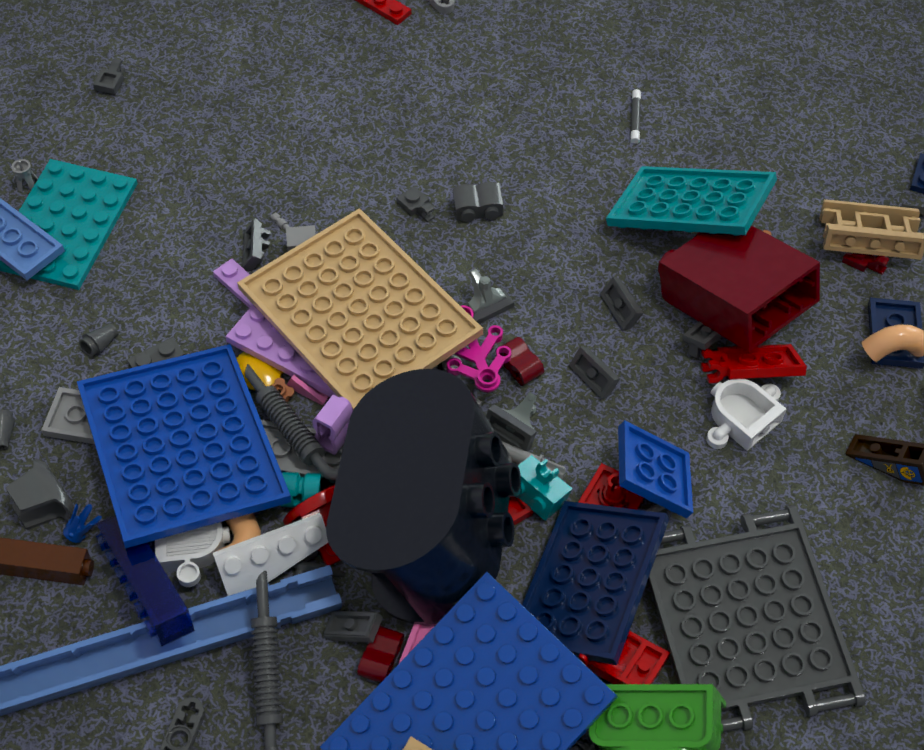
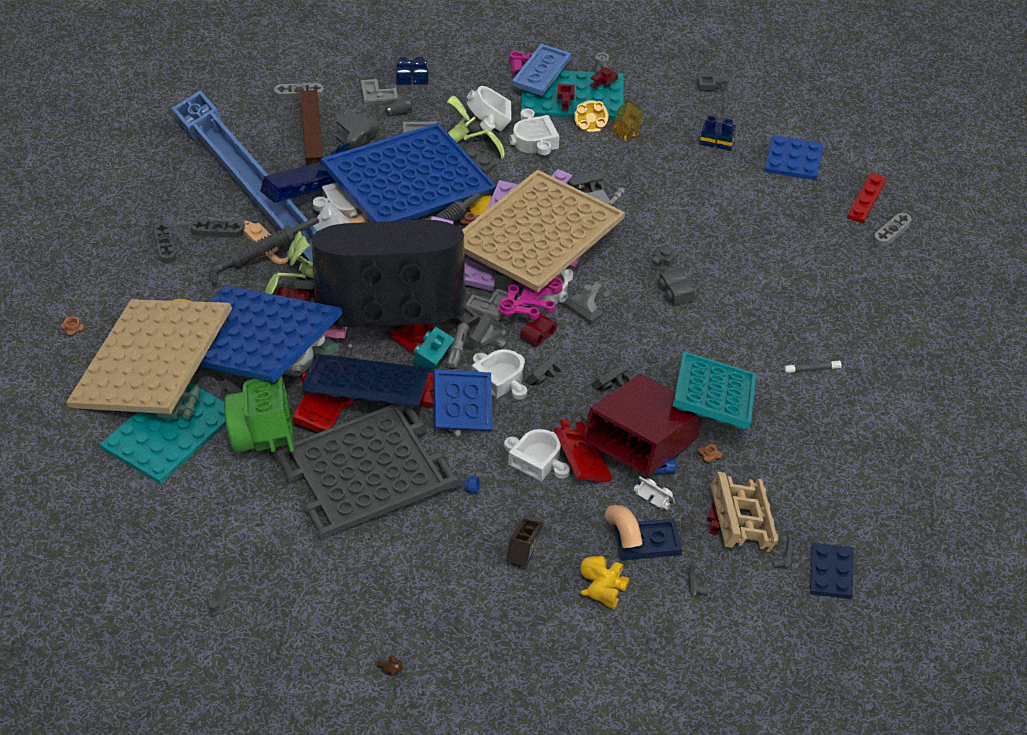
camera: 75 degrees right, 10 degrees down
(58, 175) = (603, 76): none -> dark red plate
(70, 313) = (490, 108): none -> white piece
(77, 221) = (565, 93): none -> dark red plate
(94, 361) = (461, 130): none -> yellowish green plant
(125, 210) = (591, 116): none -> yellow dish
(136, 278) = (534, 134): none -> white piece
(154, 173) = (628, 121): none -> clear yellow brick
(218, 93) = (717, 131): none -> clear blue hips
(226, 675) = (257, 231): none -> light nougat plate
(279, 40) = (794, 157): none -> blue plate
(353, 606) = (296, 248): none -> yellowish green plant
(588, 420) = (505, 370): none -> white piece
(787, 496) = (472, 484): none -> blue plate
(830, 302) = (661, 496): none -> white hinge

